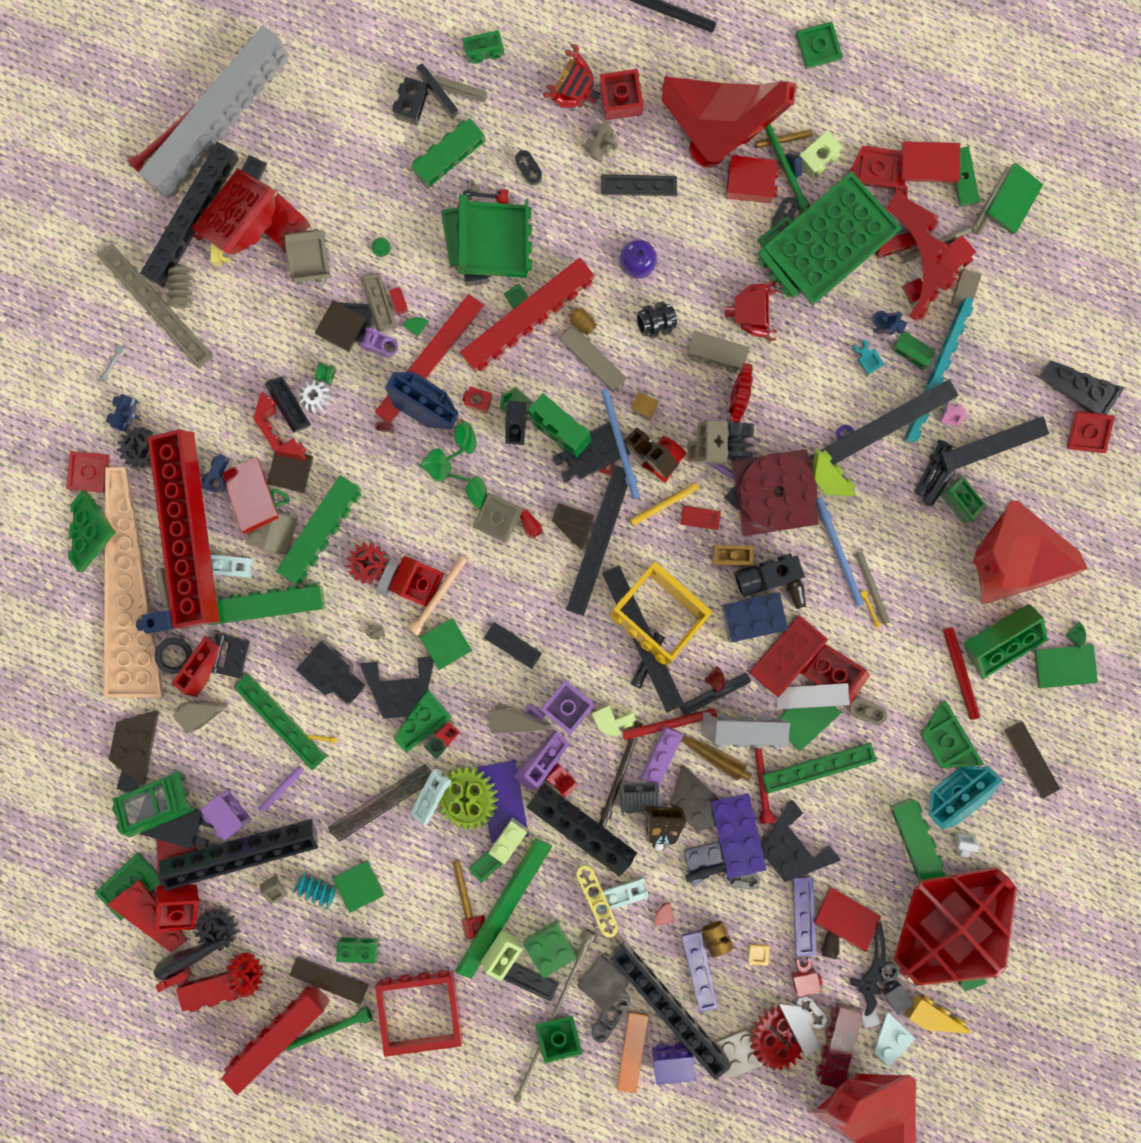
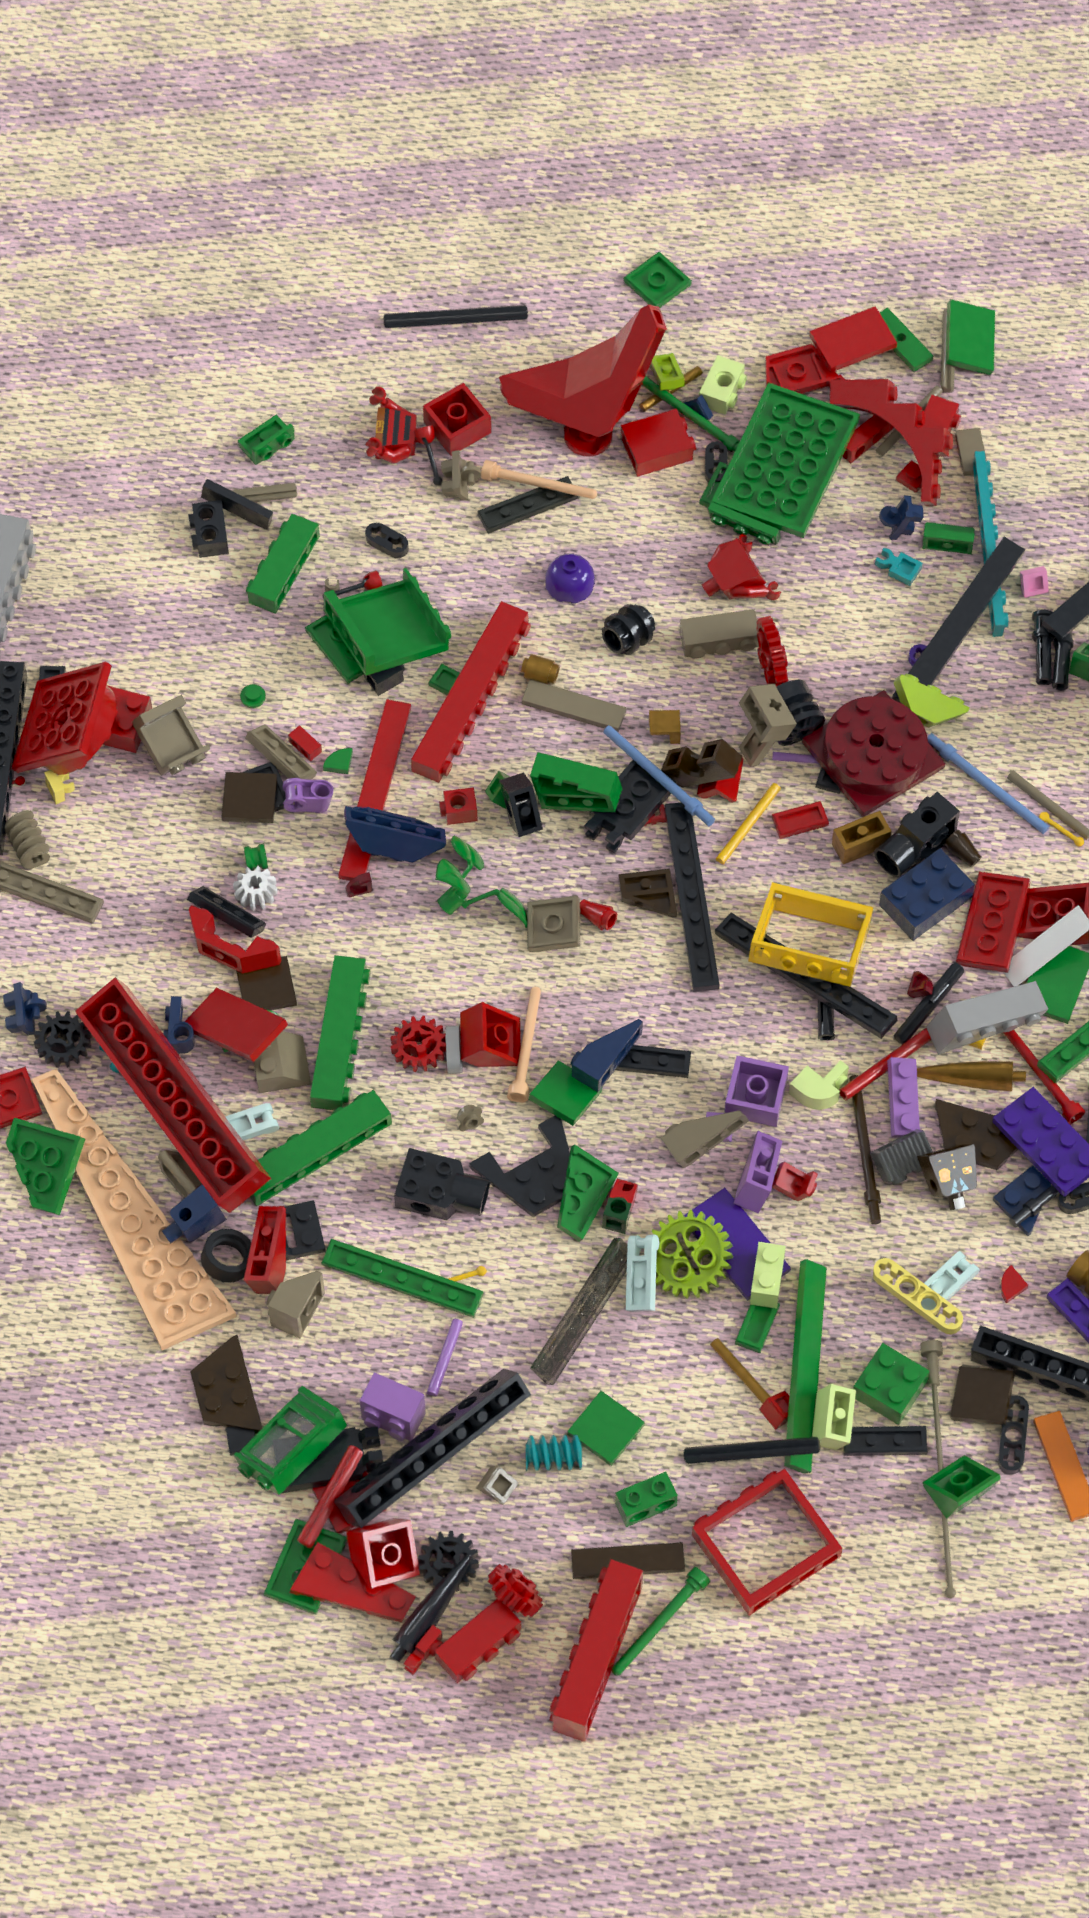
camera: 25 degrees left, 25 degrees down
(160, 854) = (332, 1491): none -> red axle
(439, 952) = (752, 1450): none -> black axle
(476, 635) = (603, 1055): none -> dark blue slope
(581, 830) = (837, 1230): black brick -> none
(591, 99) = (425, 437): none -> hinge
(627, 148) = (492, 471): none -> light nougat piece
(787, 126) = (667, 372): none -> lime plate

